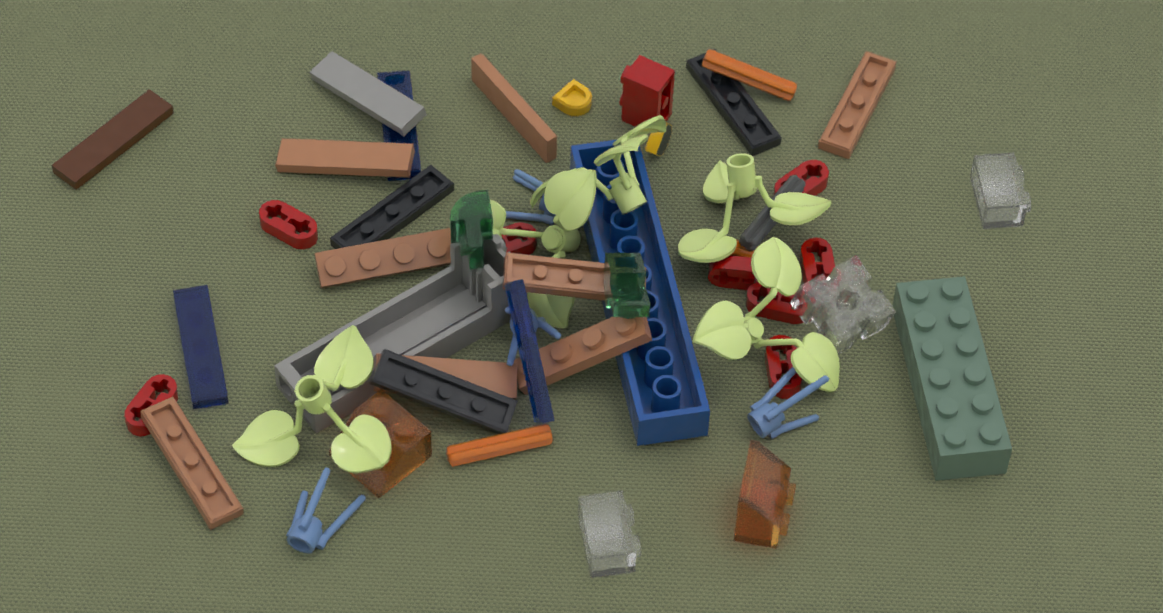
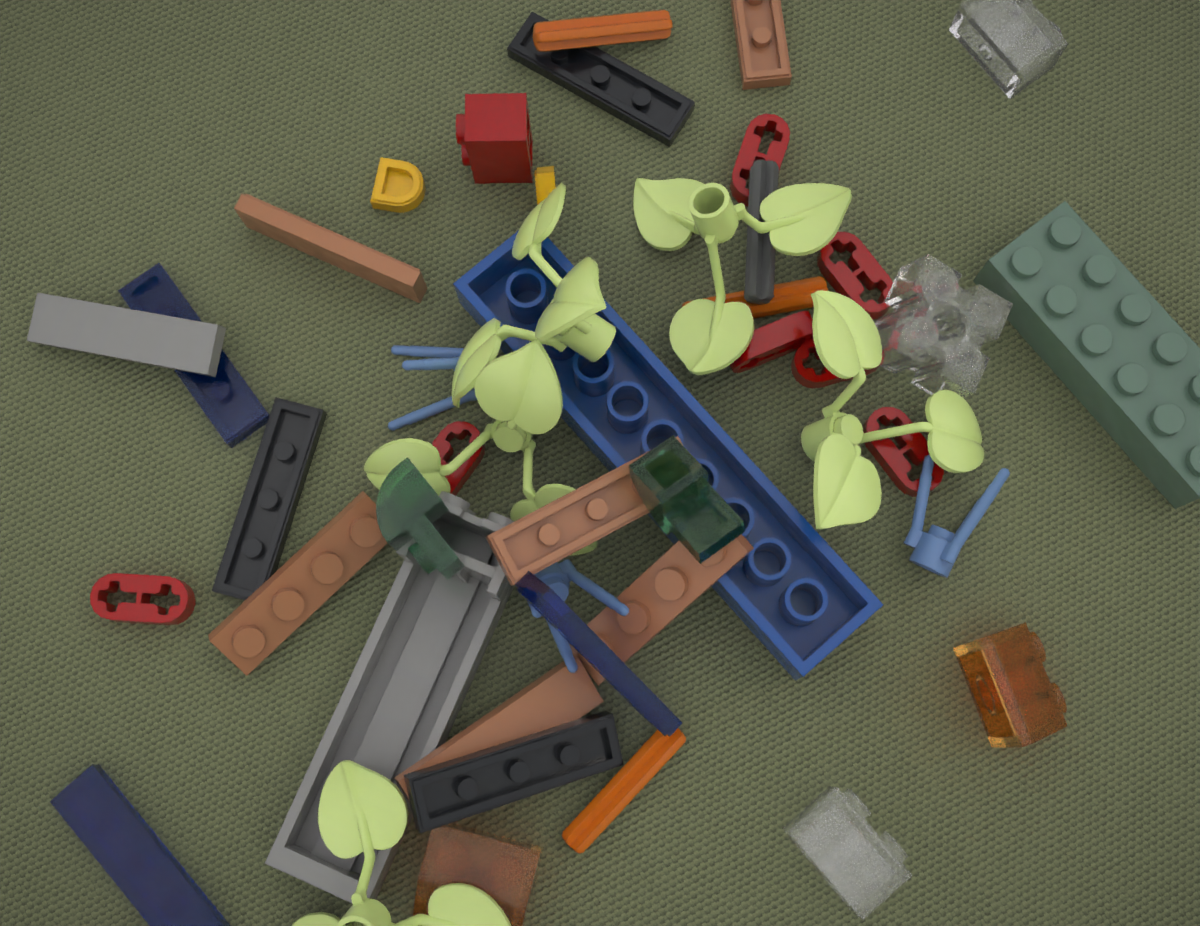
camera: 25 degrees left, 25 degrees up
(345, 157) = (156, 453): nougat tile -> none

